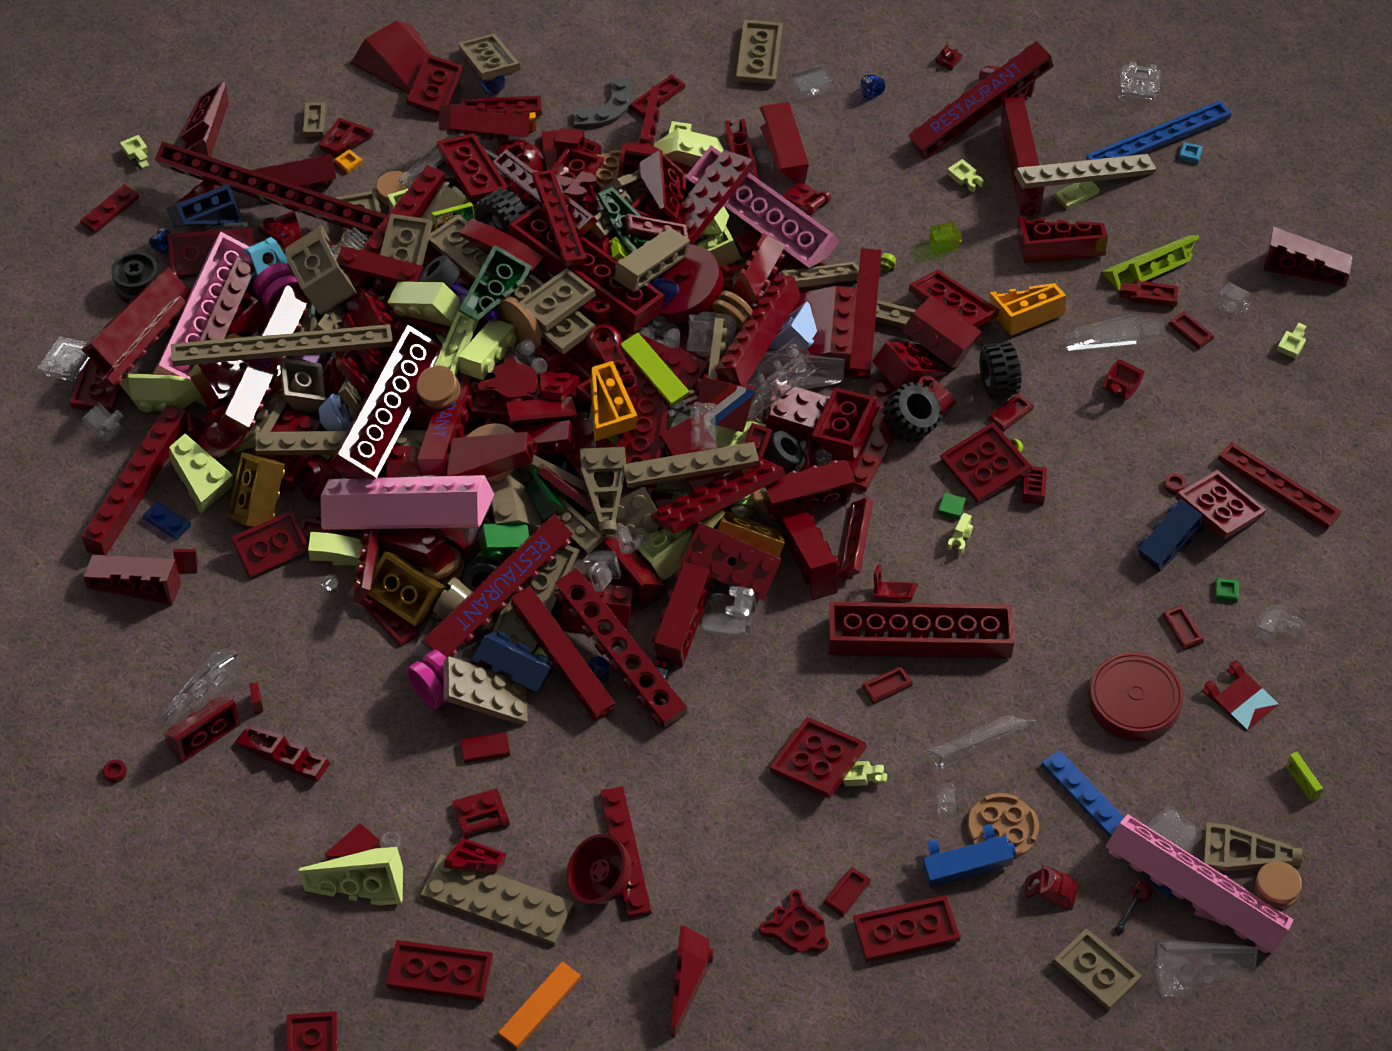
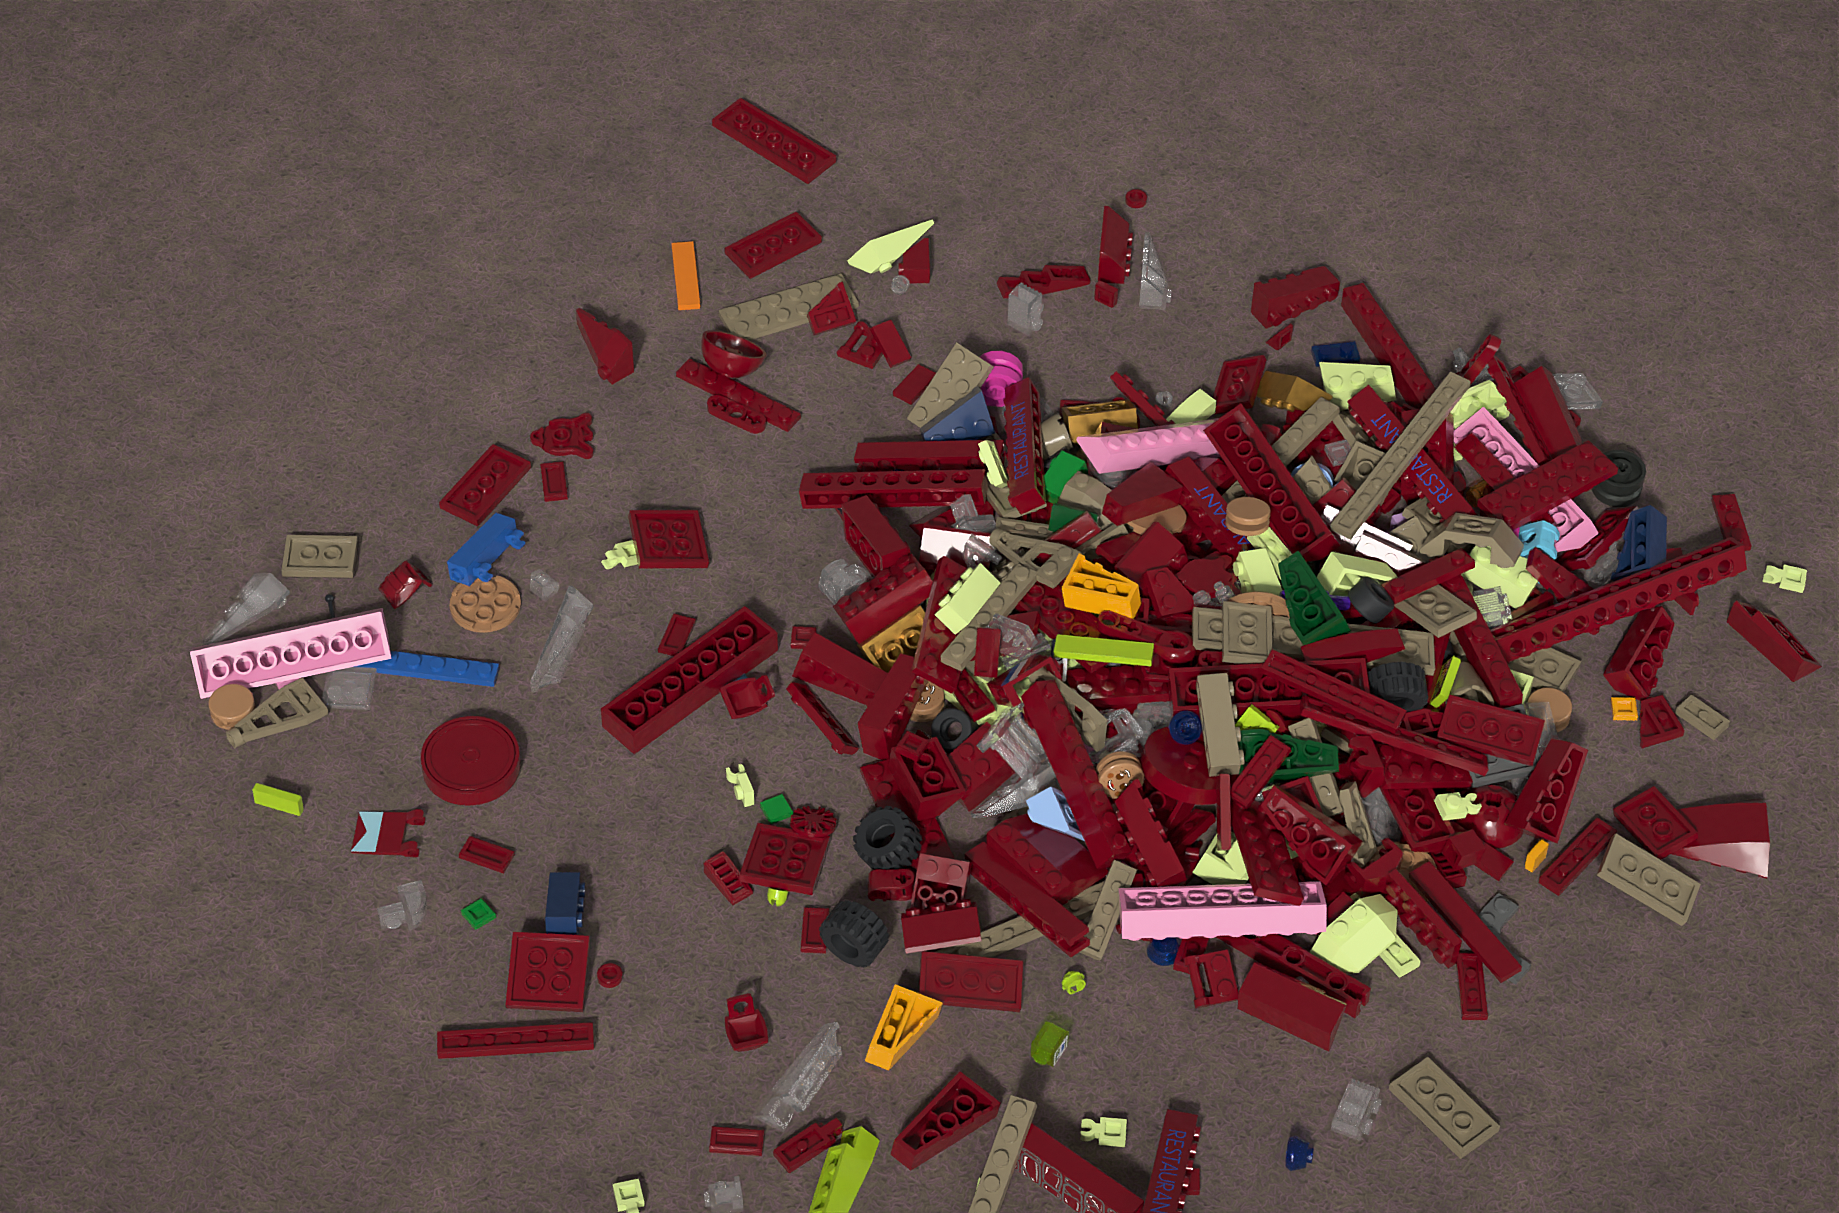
camera: 135 degrees right, 5 degrees down
(131, 402) = (1480, 358): none -> dark red beam
(212, 271) = (1548, 485): none -> dark red plate
(292, 417) = (1337, 452): none -> clear tile
(337, 723) = (1025, 309): none -> clear brick
(465, 789) = (890, 343): none -> dark red tile
(544, 581) = (989, 455): none -> yellowish green plate
(547, 159) = (1454, 807): none -> yellowish green plate
(621, 116) = (1465, 922): none -> dark red tile
(650, 825) = (731, 407): none -> dark red beam
(692, 485) = (966, 598): none -> yellowish green brick
(705, 231) = (1223, 812): none -> dark red tile
(726, 435) = (987, 652): none -> dark red tile
(800, 611) = (801, 636): none -> dark red tile
(839, 434) = (912, 746): none -> dark red tile
(939, 474) = (812, 821): none -> dark red wheel

